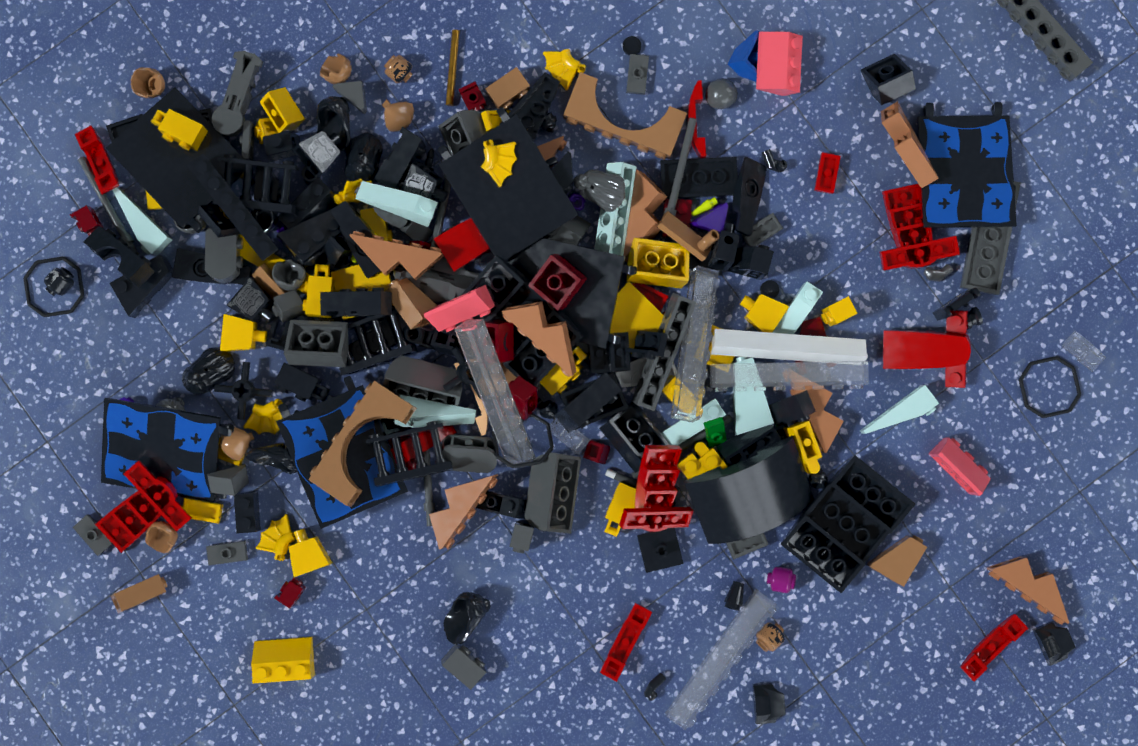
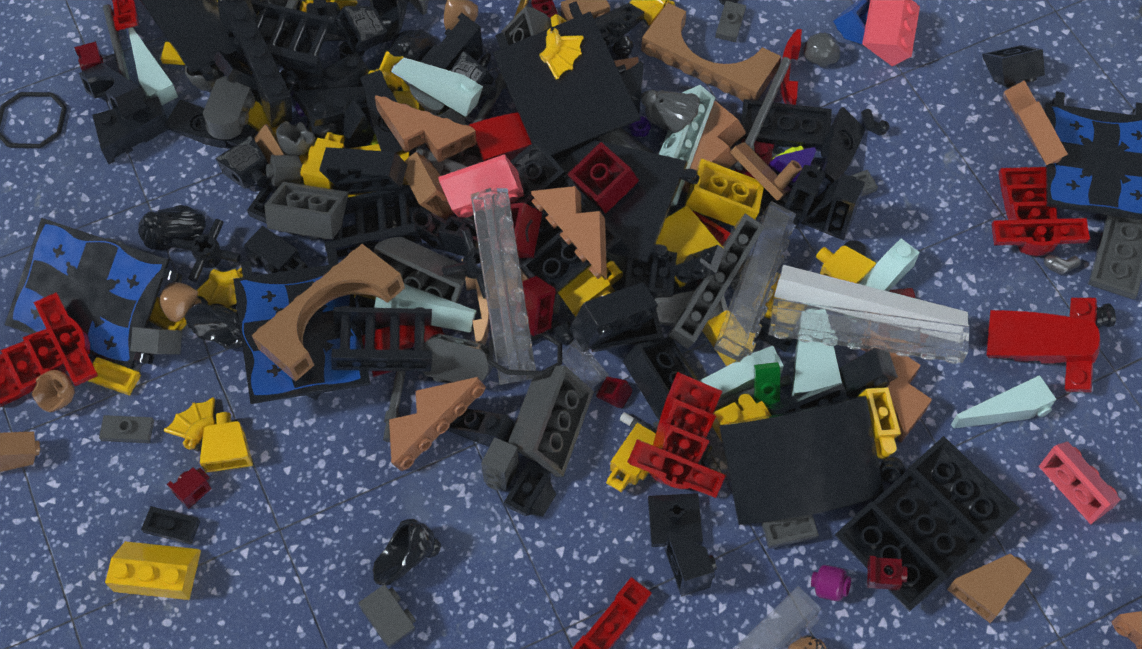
camera: 10 degrees right, 25 degrees down
(59, 281) = (37, 110): black head -> none
(240, 334) = (220, 194): yellow torso -> none
(247, 513) = (166, 383): black brick -> none
(285, 624) = (170, 525): none -> black plate
(549, 550) = (531, 492): none -> black slope
(678, 589) = (689, 563): none -> black slope
(734, 598) = (765, 595): black cone -> none
(815, 568) = (879, 580): none -> dark red brick
(827, 173) = (935, 142): red plate -> none
(838, 312) = (937, 277): yellow brick -> none
(955, 303) = (1087, 286): black container -> none

